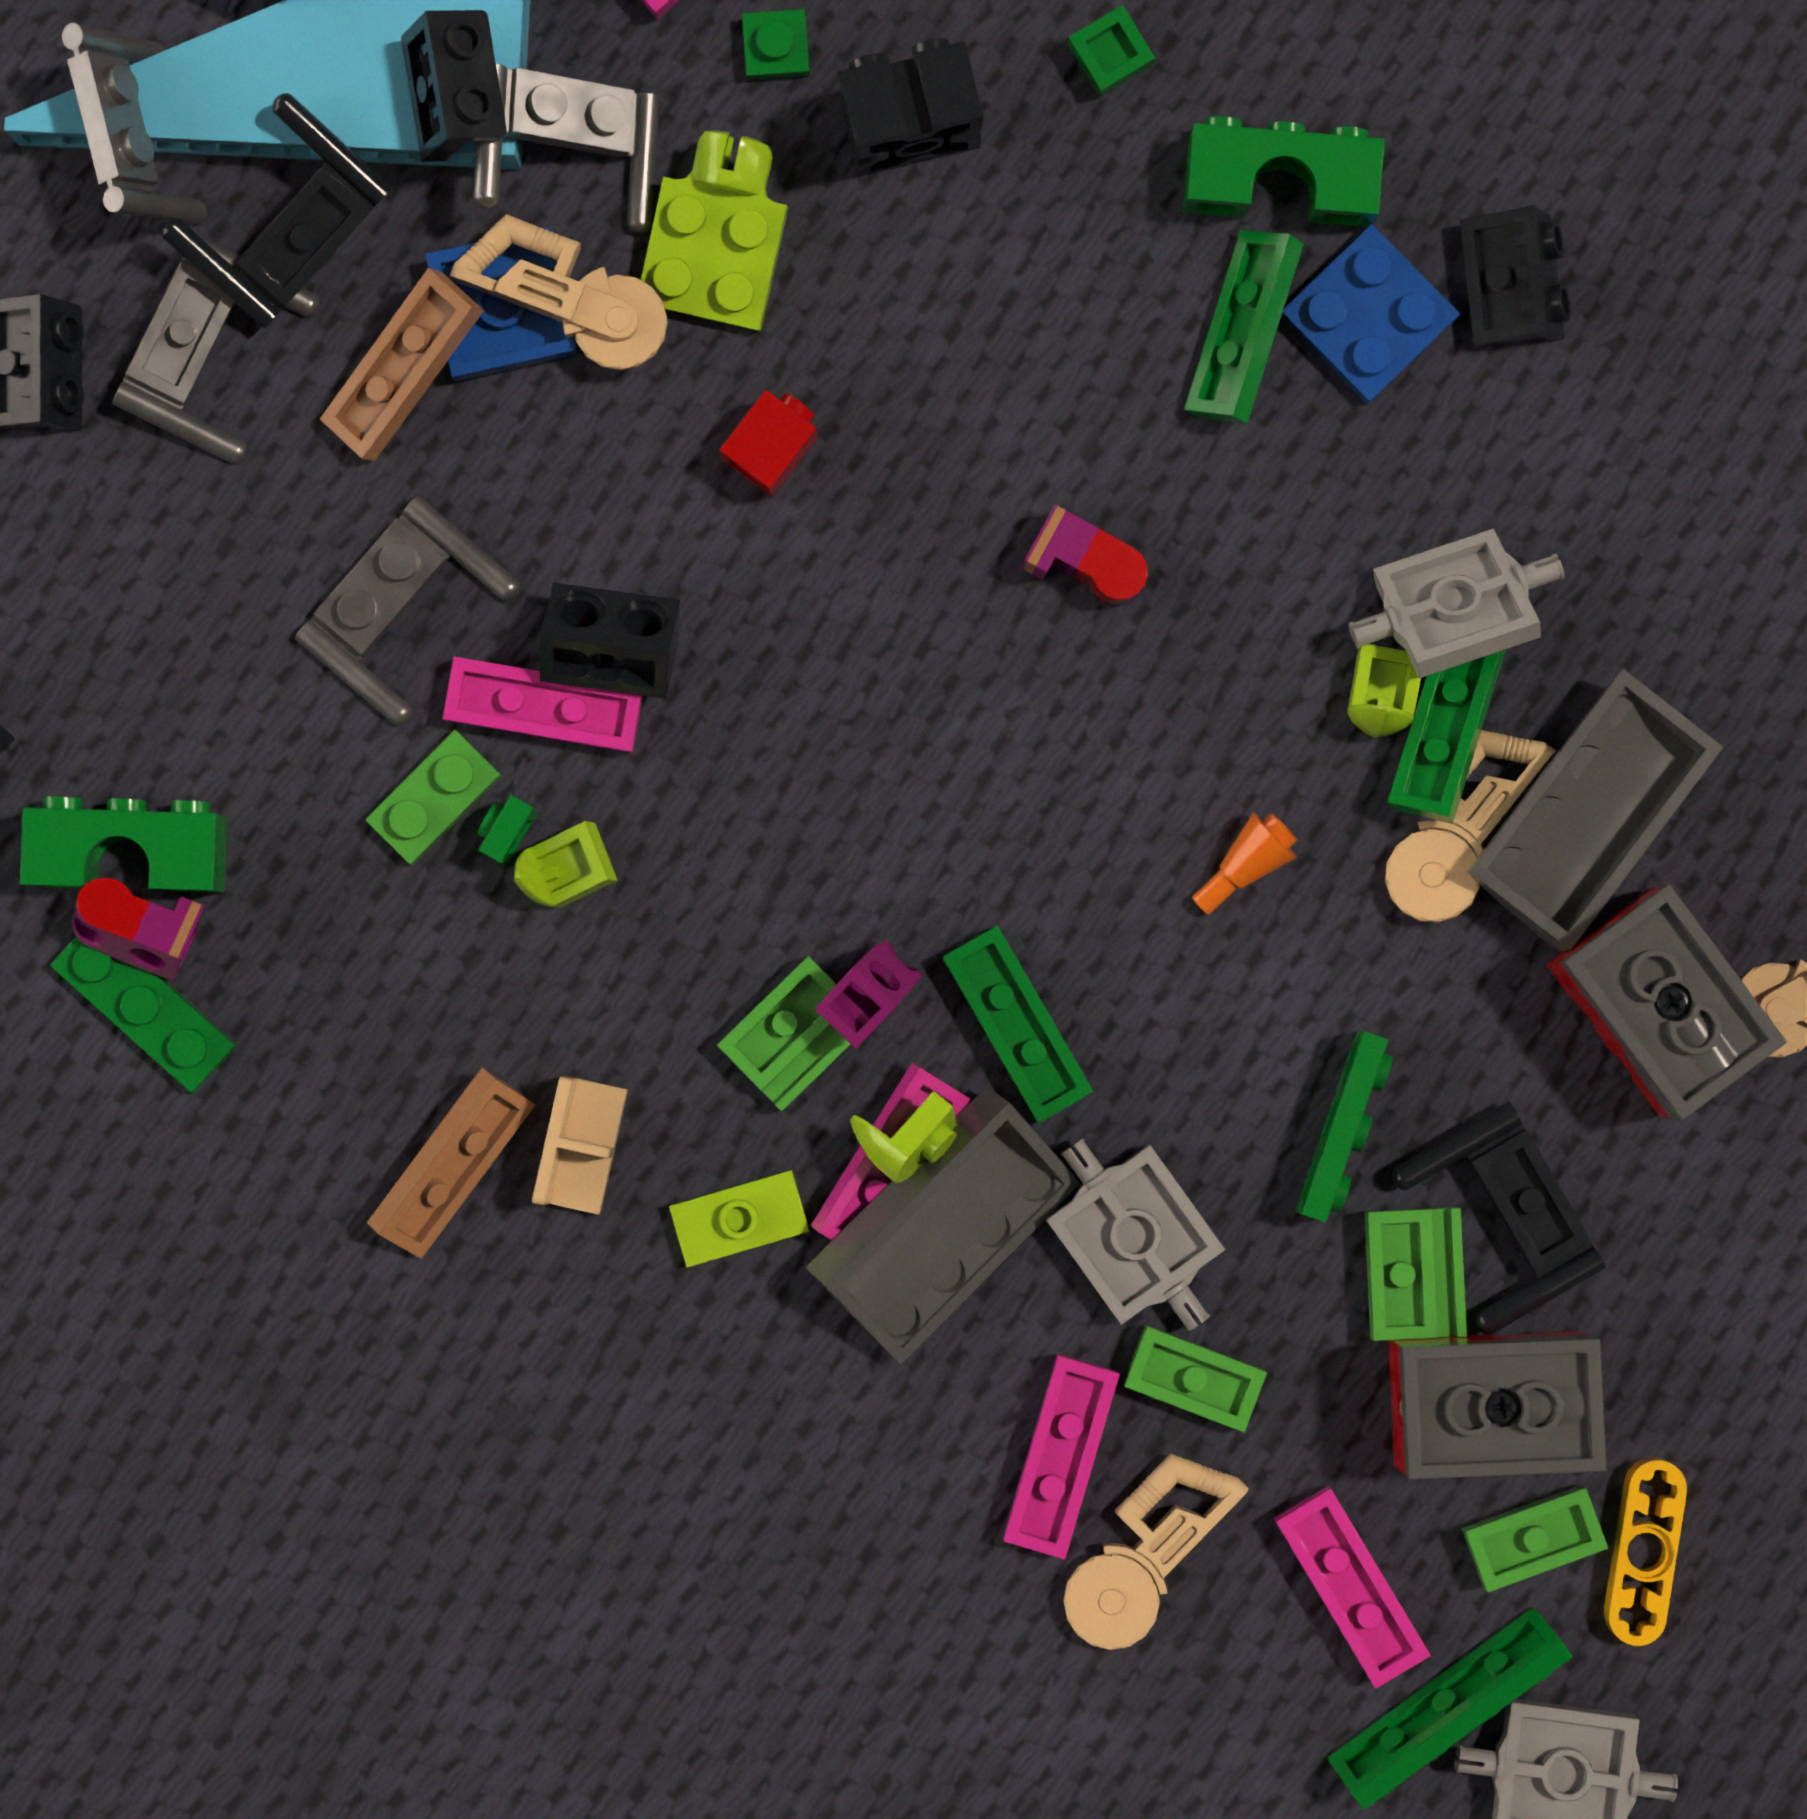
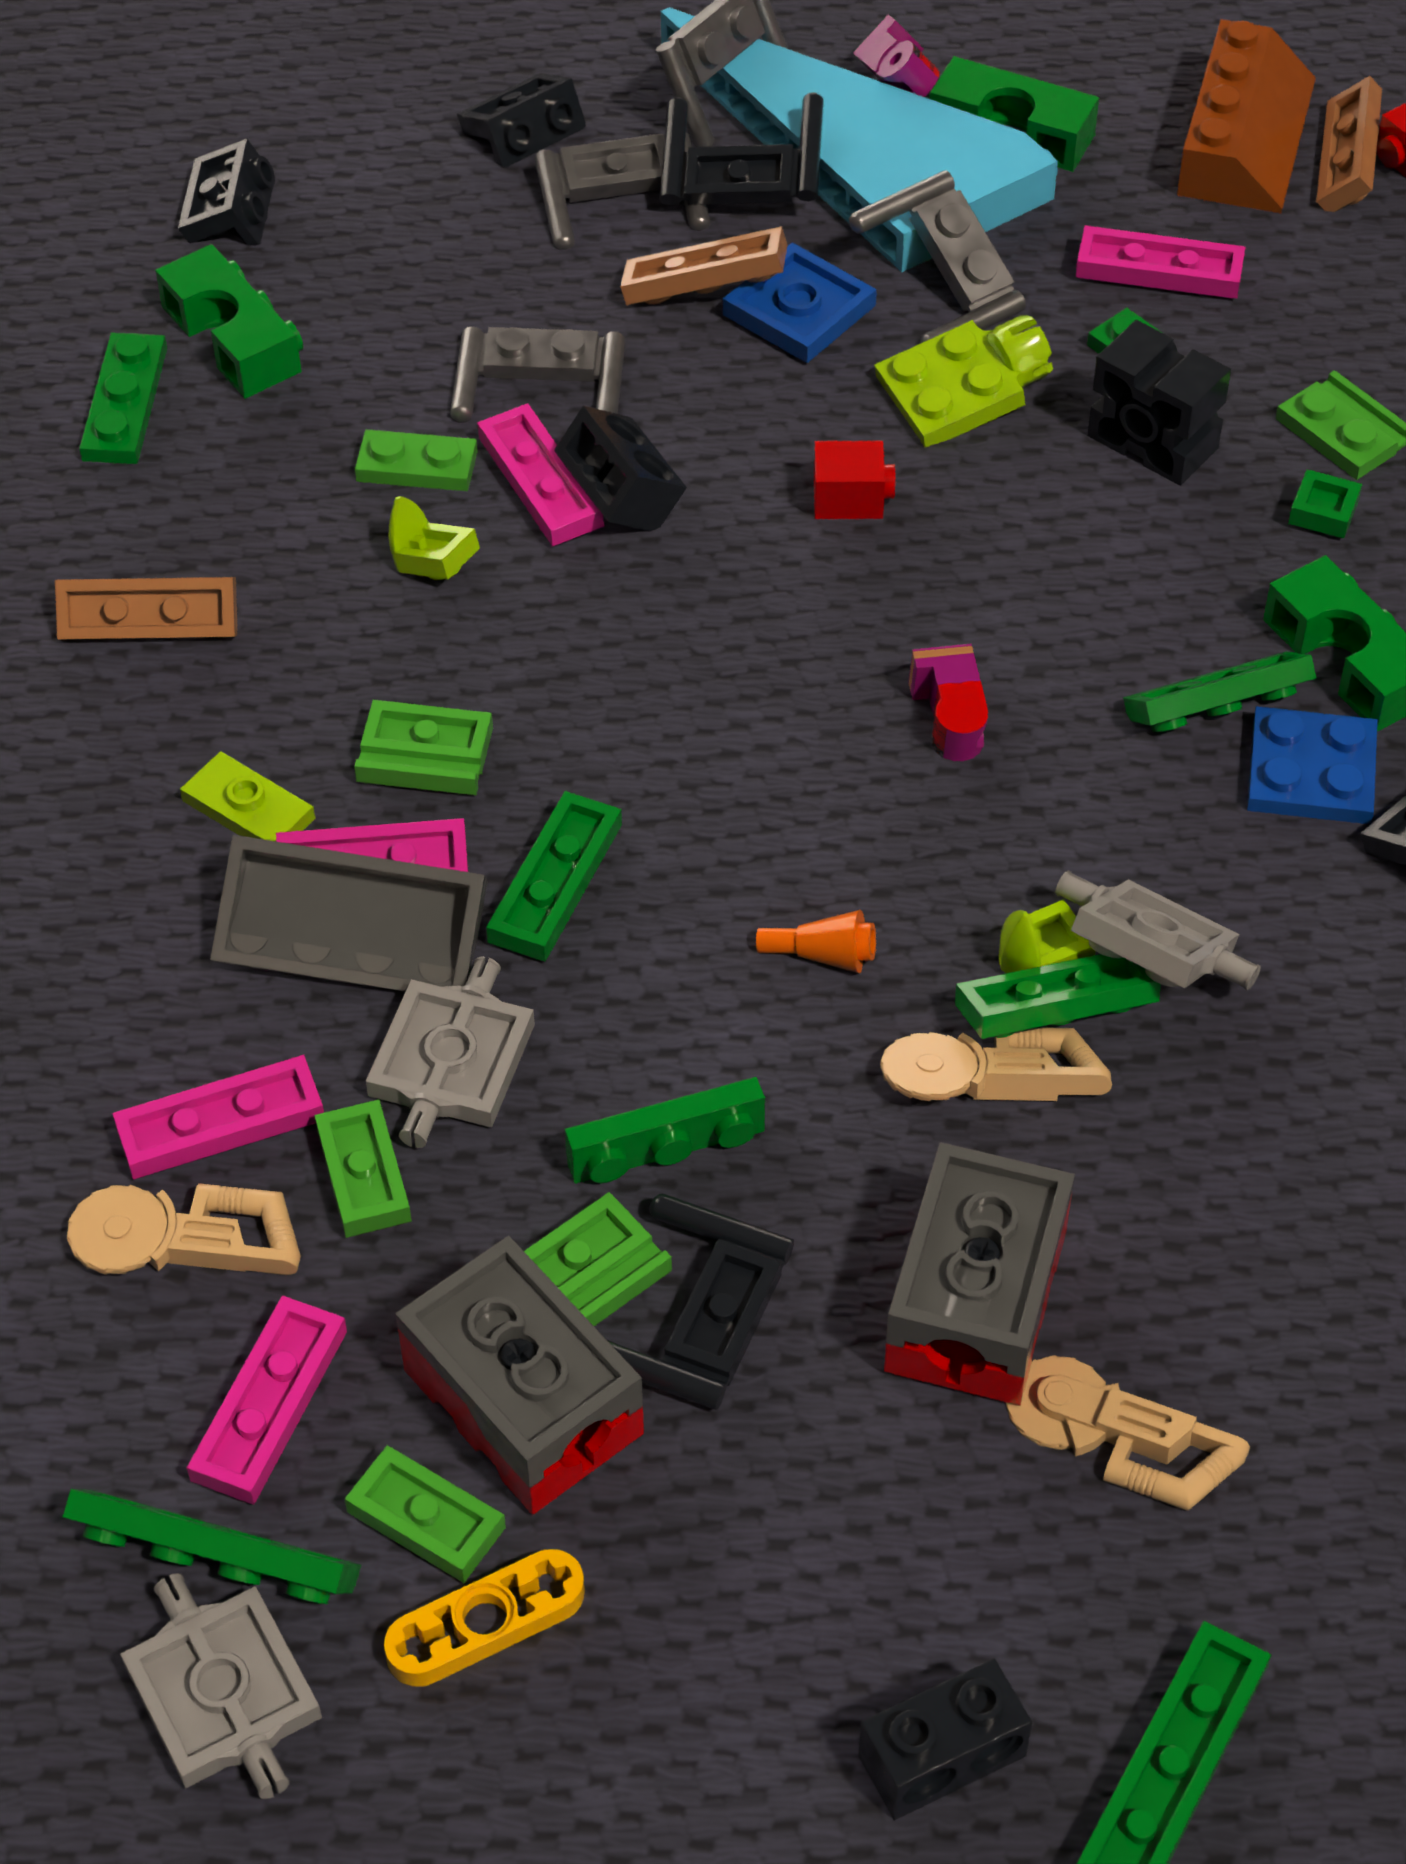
camera: 55 degrees right, 35 degrees down
(134, 928) = (177, 352): leg -> none
(452, 82) = (915, 158): black bracket -> none
(505, 828) = (434, 495): green plate -> none
(580, 1144) = (221, 665): tan panel -> none
(613, 318) = (843, 333): tan piece -> none
(868, 993) = (499, 747): magenta leg -> none
(922, 1137) = (402, 829): lime plate -> none
(1594, 811) = (1120, 1128): dark grey slope -> none

